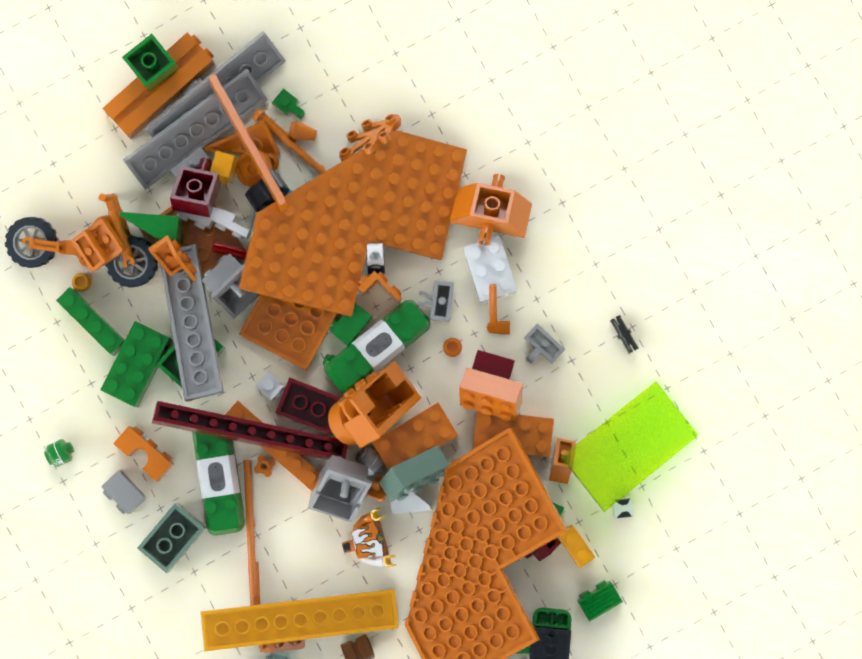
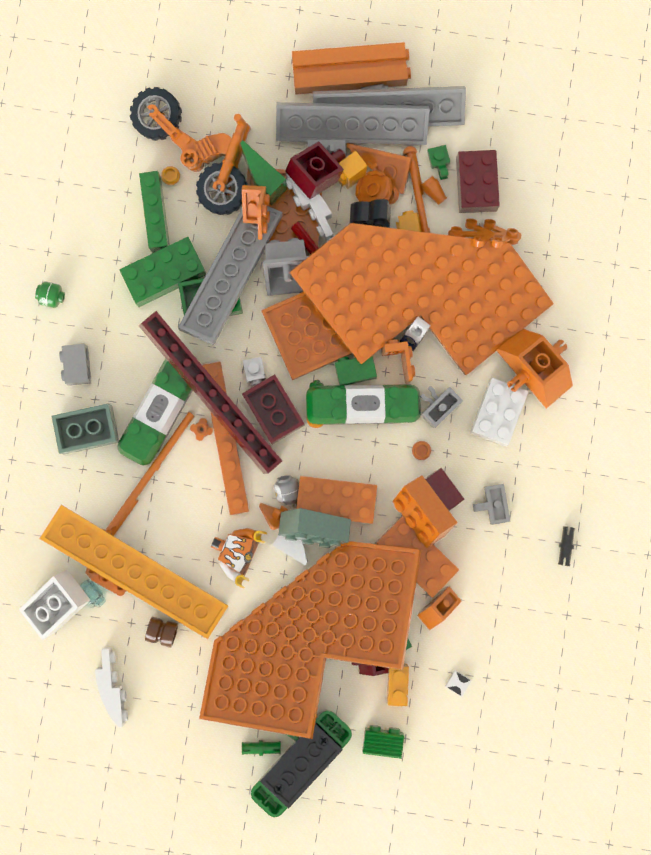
camera: 35 degrees right, 0 degrees up
(98, 244) = (206, 154): orange slope -> none
(150, 62) = (357, 42): green brick -> none
(158, 462) = (114, 329): orange arch -> none
(248, 142) = (386, 163): orange tile -> none
(302, 173) = (409, 221): none -> light orange brick
(331, 98) = (477, 181): none -> dark red brick
(340, 489) = (246, 493): light grey piece -> none
(372, 406) = (322, 448): orange brick -> none
(495, 326) = (467, 459): orange piece -> none
(629, 446) = (502, 639): clear neon green piece -> none

